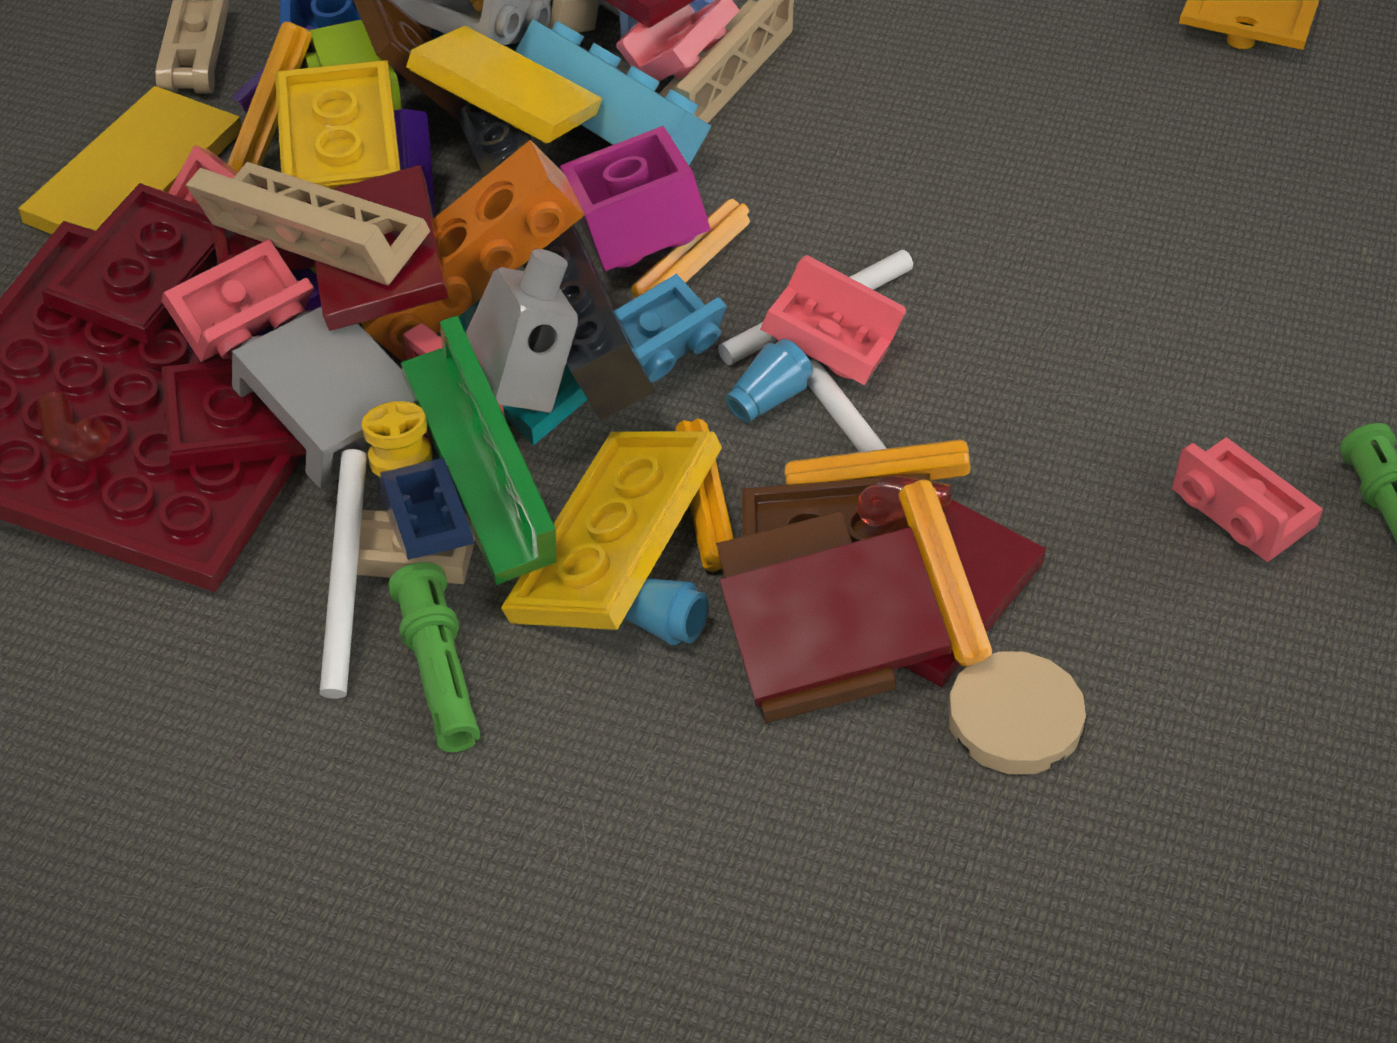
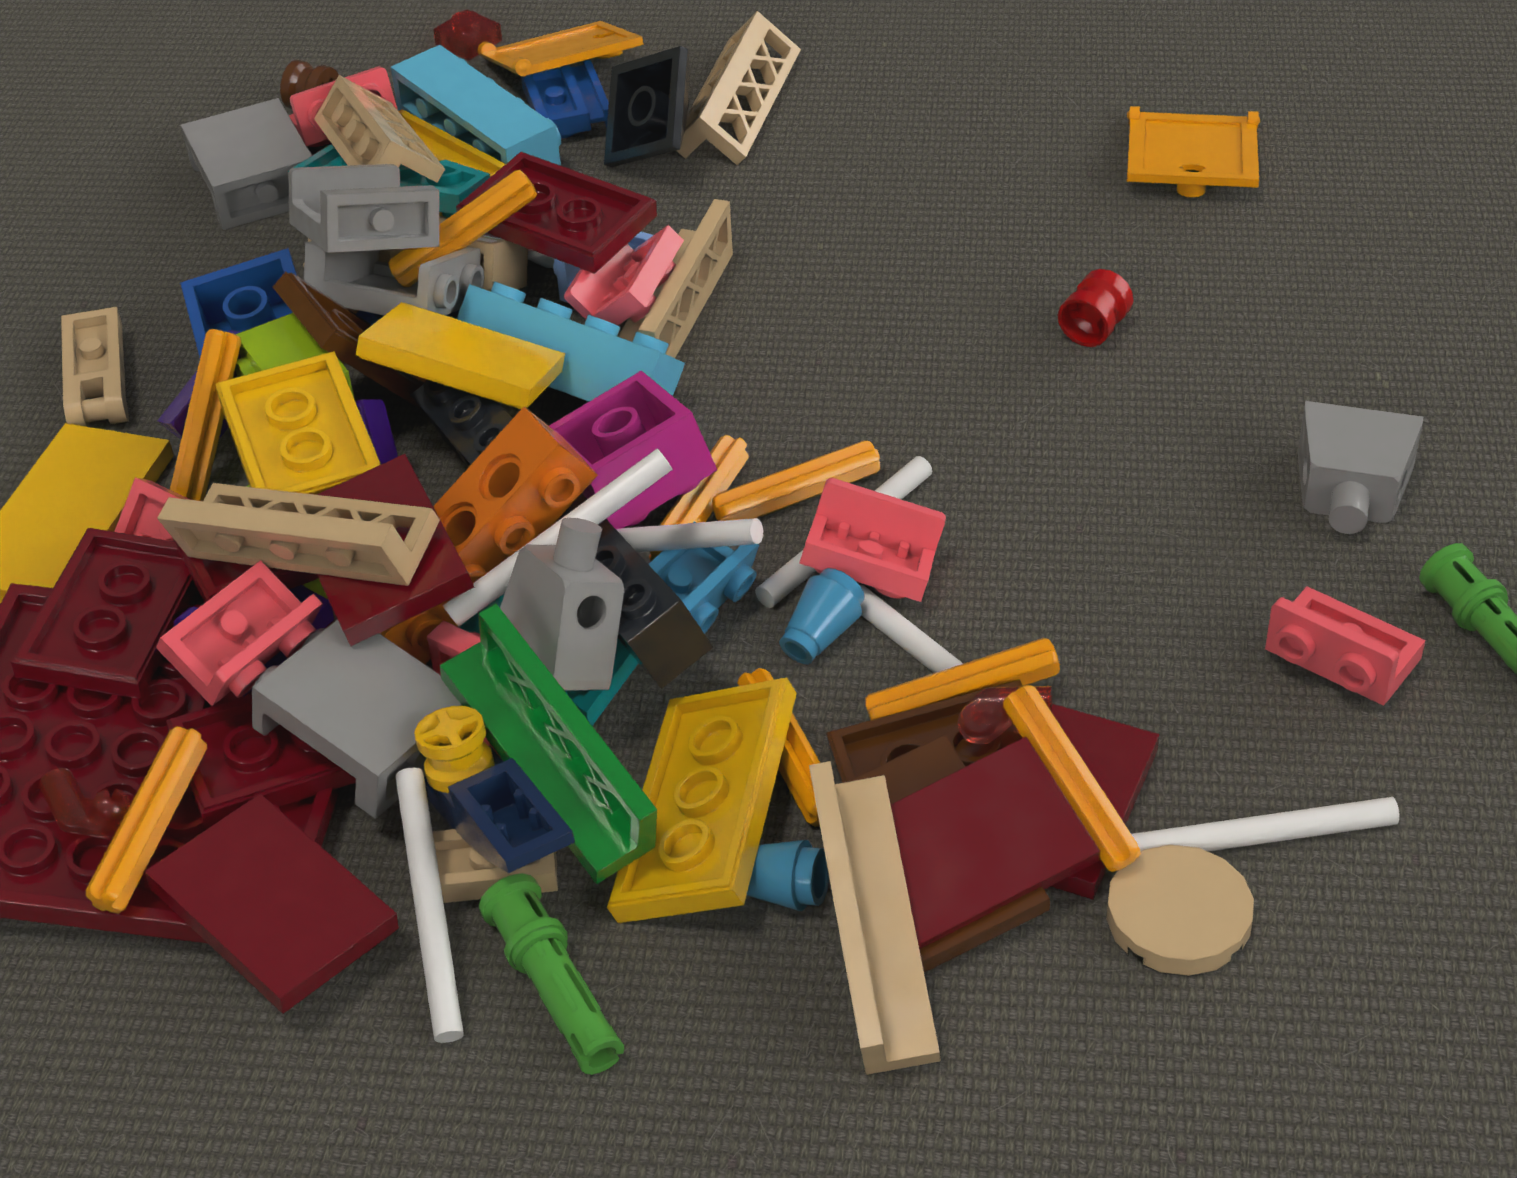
camera: 10 degrees left, 5 degrees down
(118, 451) = (146, 820): none -> light orange axle
(208, 545) = (272, 902): none -> dark red tile
(569, 248) = (594, 509): none -> white bar
(664, 285) = (694, 535): none -> white bar
(725, 667) = (875, 922): none -> tan fence
(783, 255) = (796, 483): none -> light orange axle
(1110, 139) = (1095, 307): none -> red wheel
(1128, 654) = (1276, 826): none -> white bar
(1313, 330) = (1355, 463): none -> light grey torso

